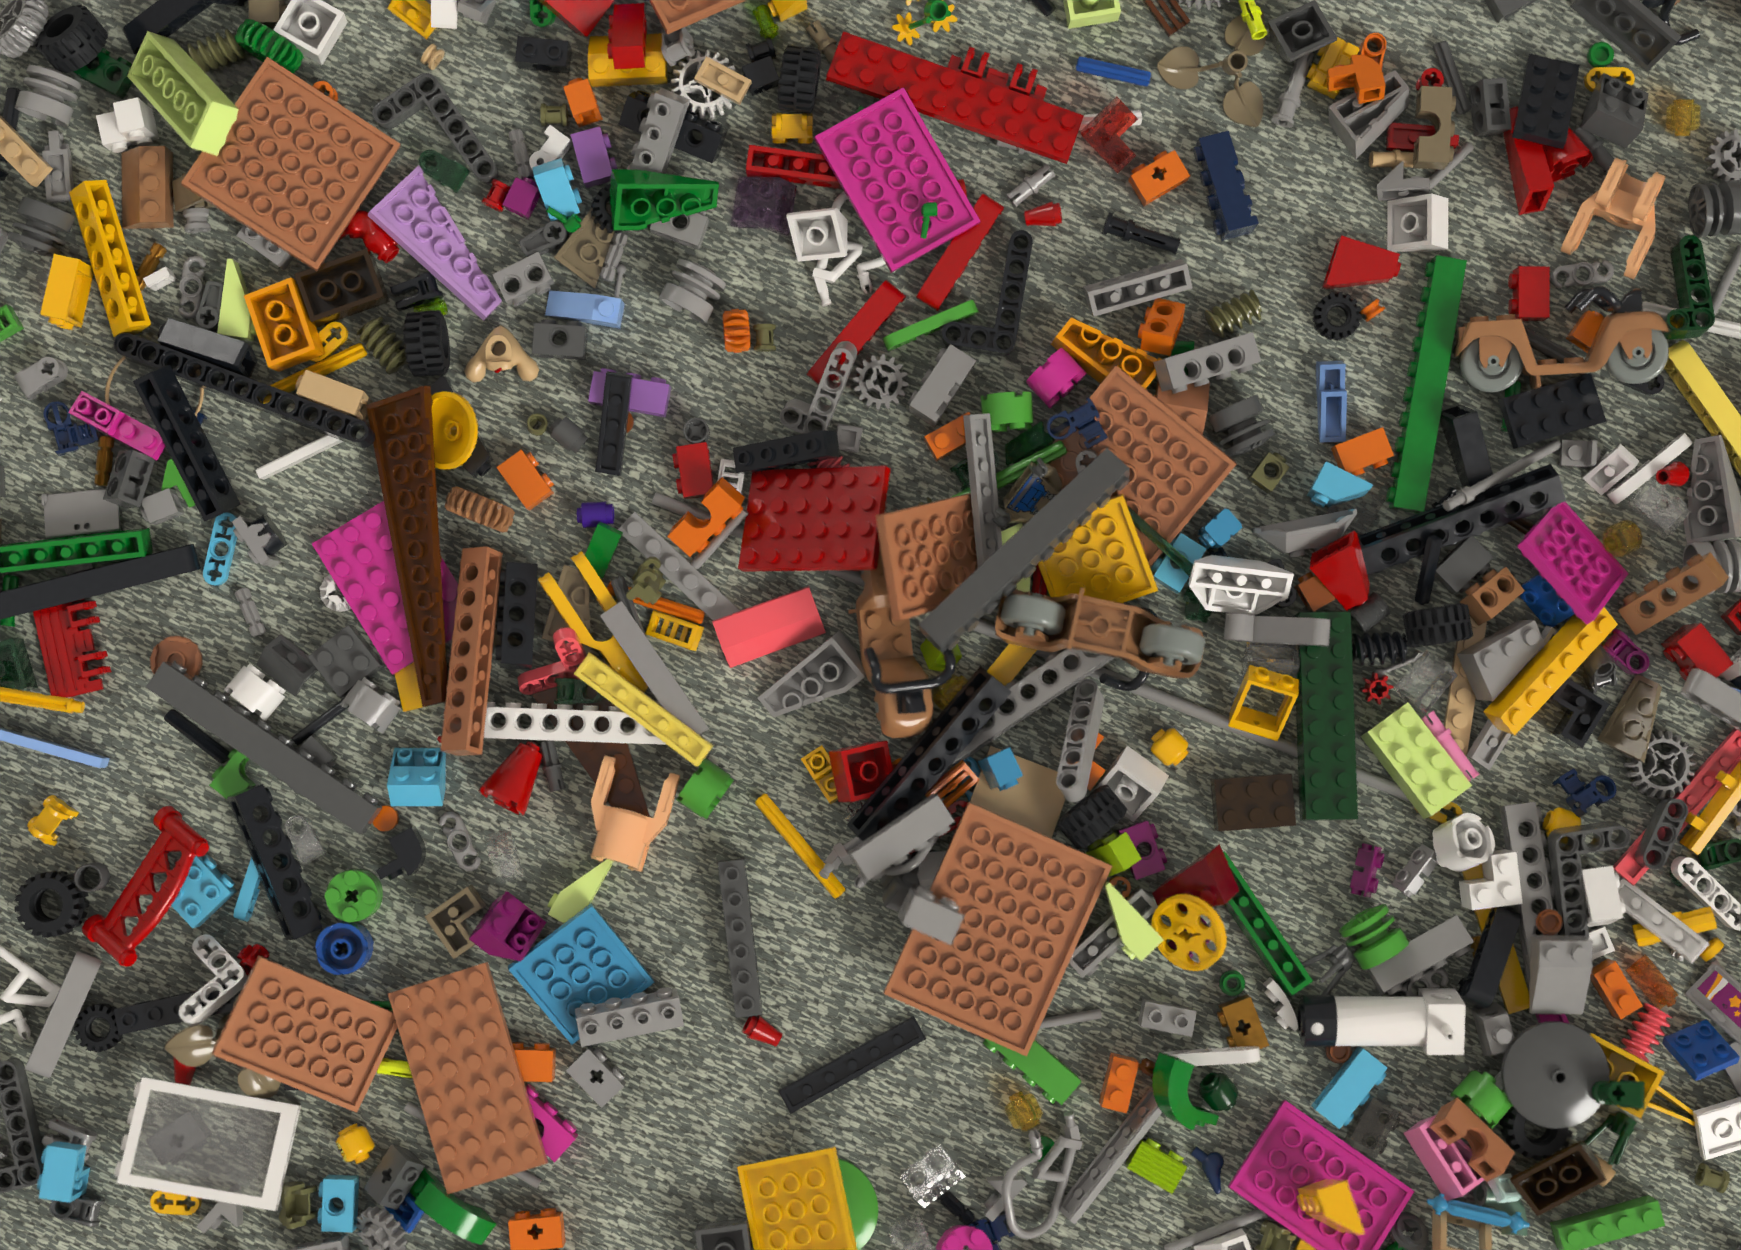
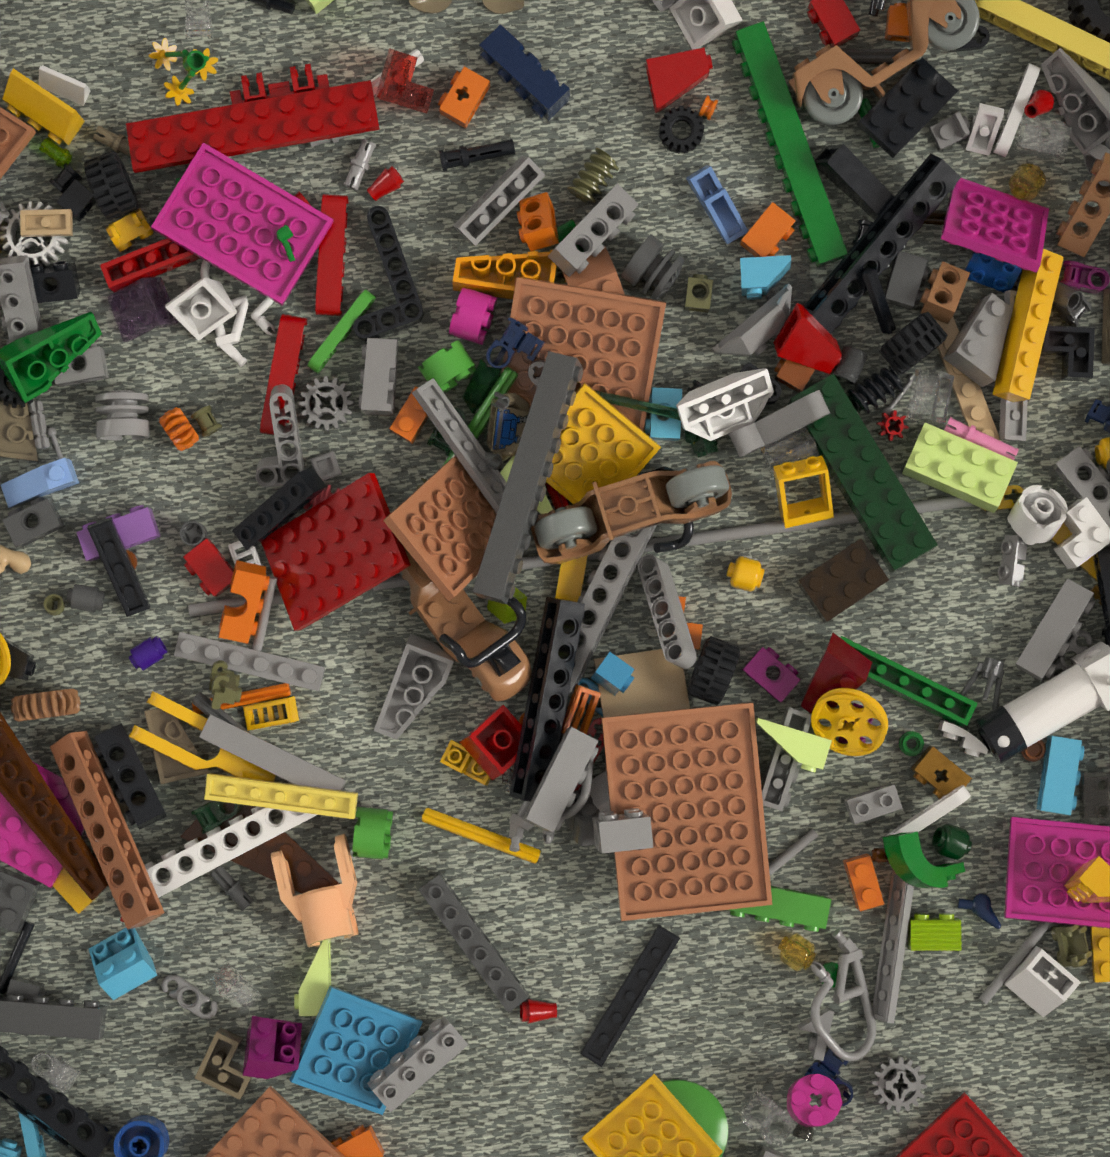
camera: 30 degrees left, 0 degrees up
(368, 898) = (111, 1098): bright green brick -> none
(371, 705) = (47, 925): light grey brick -> none
(386, 819) = (116, 1013): orange tile -> none
(410, 852) = (153, 1030): black brick -> none
(514, 779) = (205, 917): red cone -> none
(525, 479) = (71, 657): orange brick -> none
(539, 678) = (178, 820): coral beam -> none
(599, 1090) = (406, 1134): light grey brick -> none
(603, 547) = (169, 678): green tile -> none
(768, 627) = (349, 665): coral slope -> none
(935, 1180) = (755, 1053): clear brick -> none
(947, 691) = (530, 633): clear yellow head -> none
(956, 1207) = (781, 1065): black axle -> none
(1113, 71) = (375, 28): blue axle -> none
(1113, 881) = (778, 719): orange bush -> none
(1116, 851) = (749, 688): lime brick -> none
(1134, 781) = (732, 620): white slope -> none
(1219, 529) = (683, 366): dark azure brick -> none
(1366, 880) = (974, 592): magenta hinge -> none
(1371, 932) = (1011, 638): bright green wheel -> none
(1468, 494) = (875, 218): light grey bar -> none

